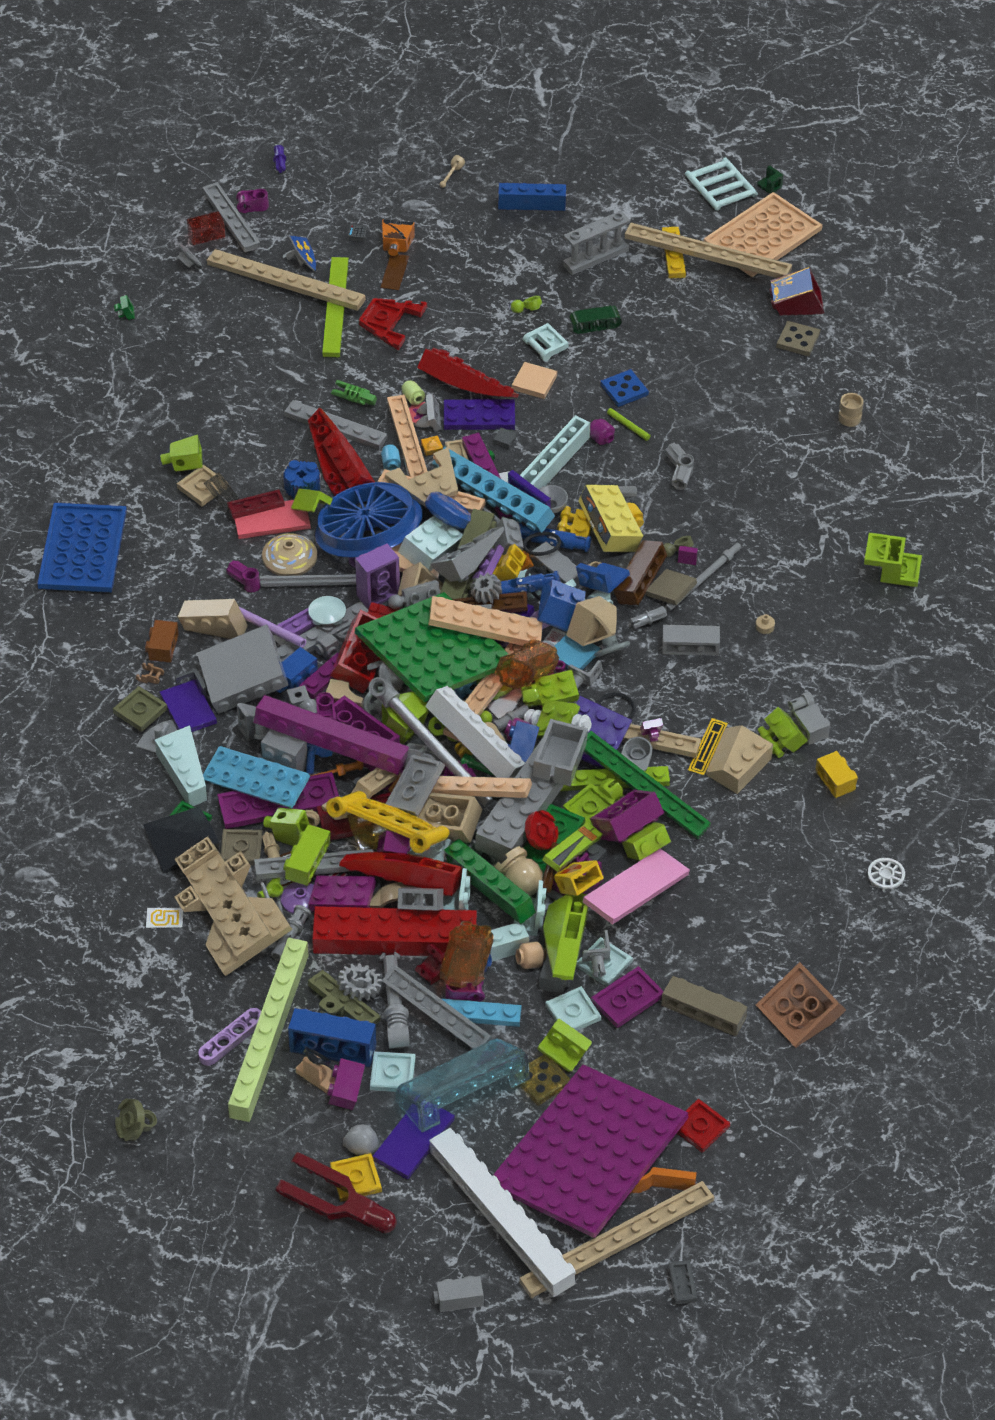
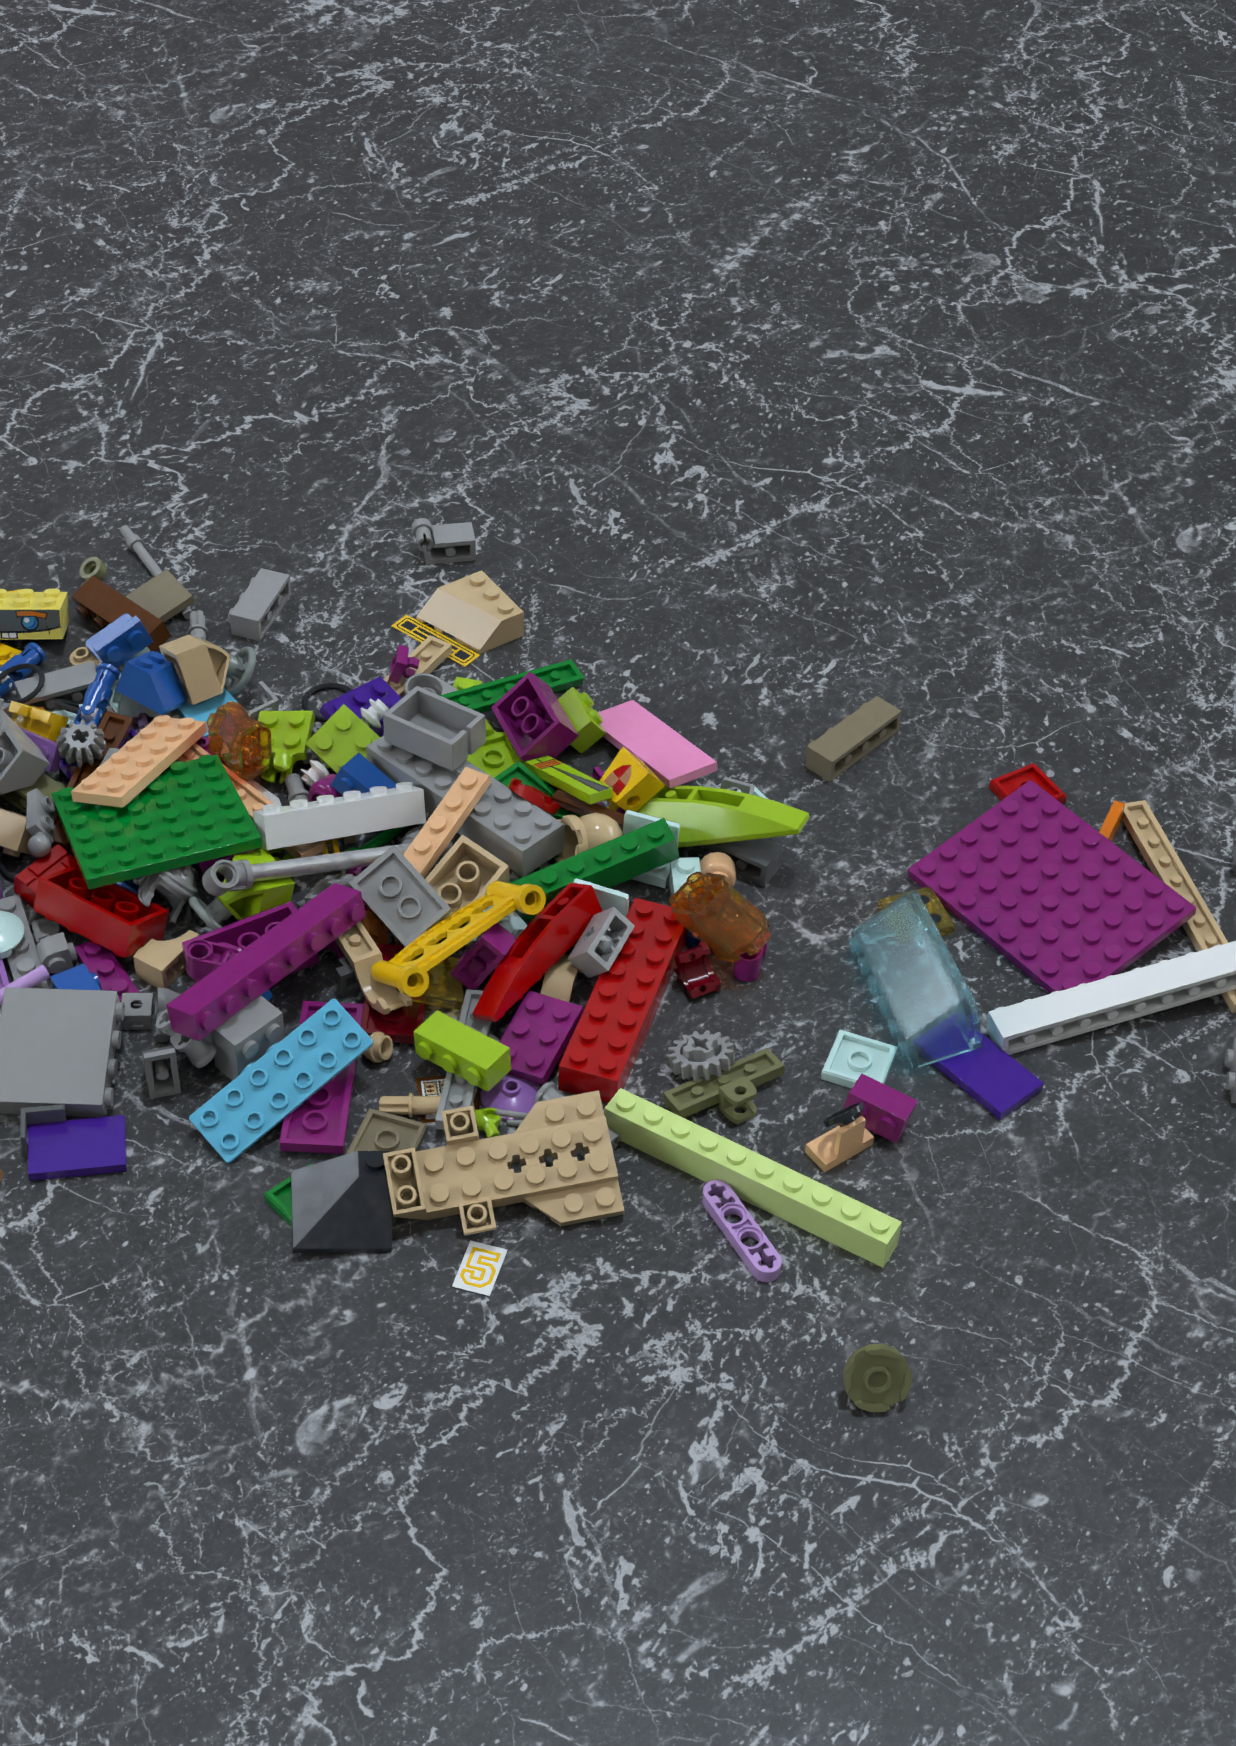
camera: 75 degrees left, 5 degrees down
(140, 708) = (49, 1206): olive plate -> none
(147, 741) = (119, 1198): light grey shield -> none
(182, 763) = (202, 1171): light aqua wedge -> none
(287, 824) = (388, 1066): lime torso -> none
(332, 1036) = (798, 1099): blue brick -> none
(342, 769) = (299, 993): orange sword -> none
(356, 1207) = (1095, 1138): dark red piece -> none
(361, 1140) = (972, 1117): light grey hair -> none
(361, 1173) = (1027, 1143): yellow tile -> none
(395, 1013) = (809, 1033): light grey piece -> none
(436, 1007) = (780, 981): light grey plate -> none
(488, 1012) = (787, 951): medium azure plate -> none
(564, 1045) = (878, 872): lime bracket -> none
(574, 1009) = (815, 861): light aqua tile -> none
(627, 997) = (818, 795): magenta plate -> none
(687, 555) = (115, 571): magenta tile -> none
(765, 624) = (266, 541): tan tile -> none
(786, 731) = (455, 561): lime brick -> none
(800, 1006) = (883, 657): nougat slope -> none
(836, 774) = (541, 543): yellow brick -> none
(886, 873) = (703, 549): white wheel -> none
(889, 554) = (240, 409): lime bracket -> none

